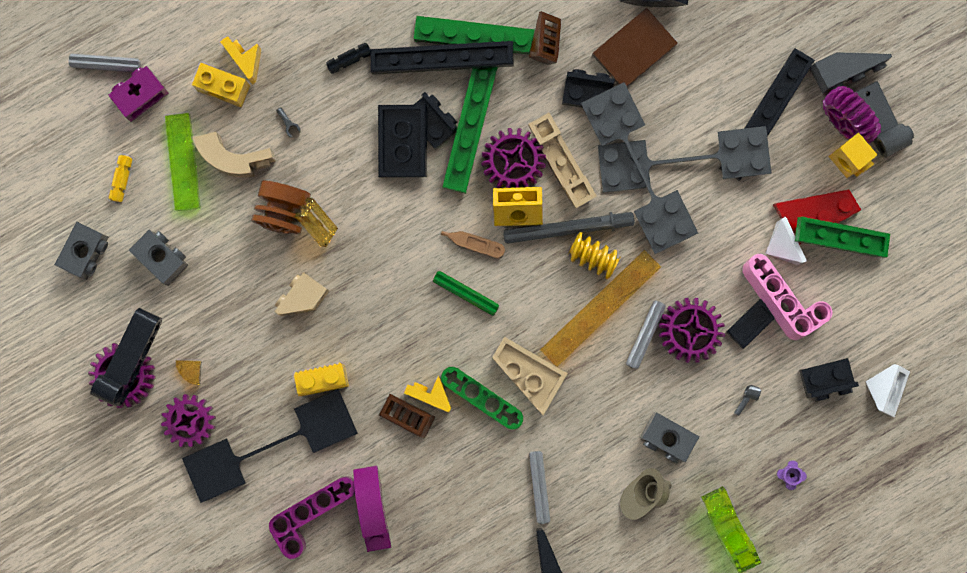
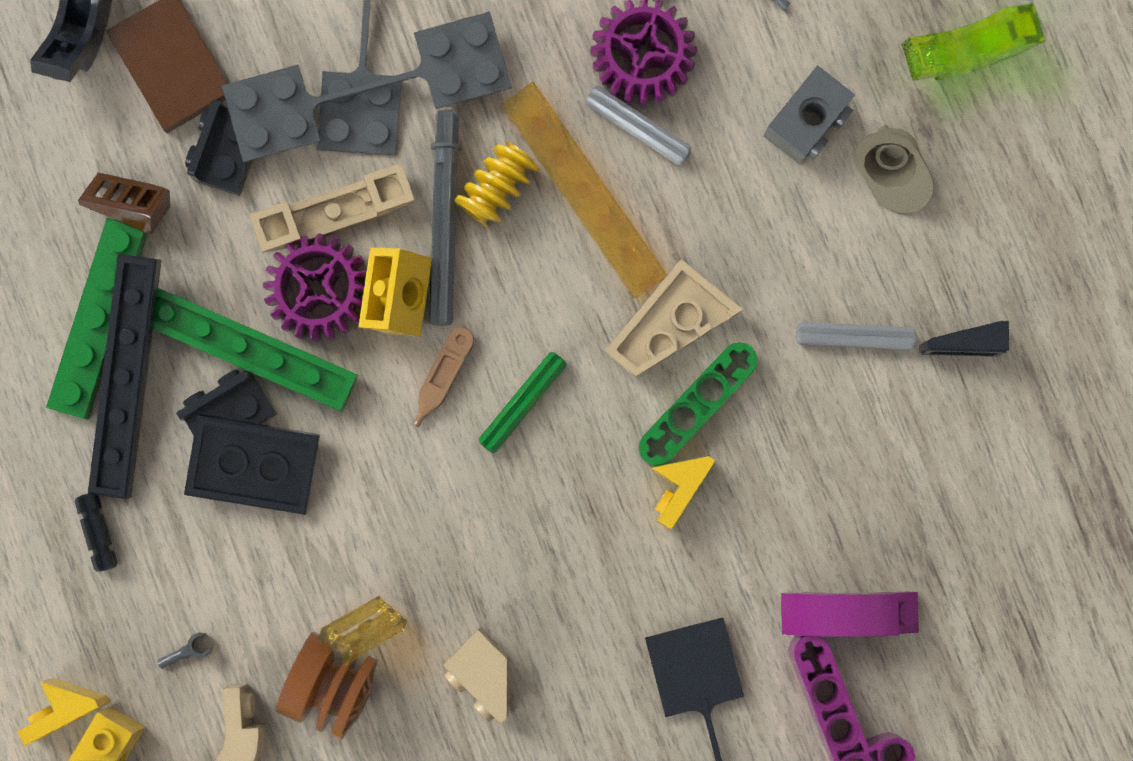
camera: 80 degrees left, 0 degrees up
(321, 379) = (626, 664): yellow brick -> none
(425, 425) = (729, 504): reddish brown slope -> none

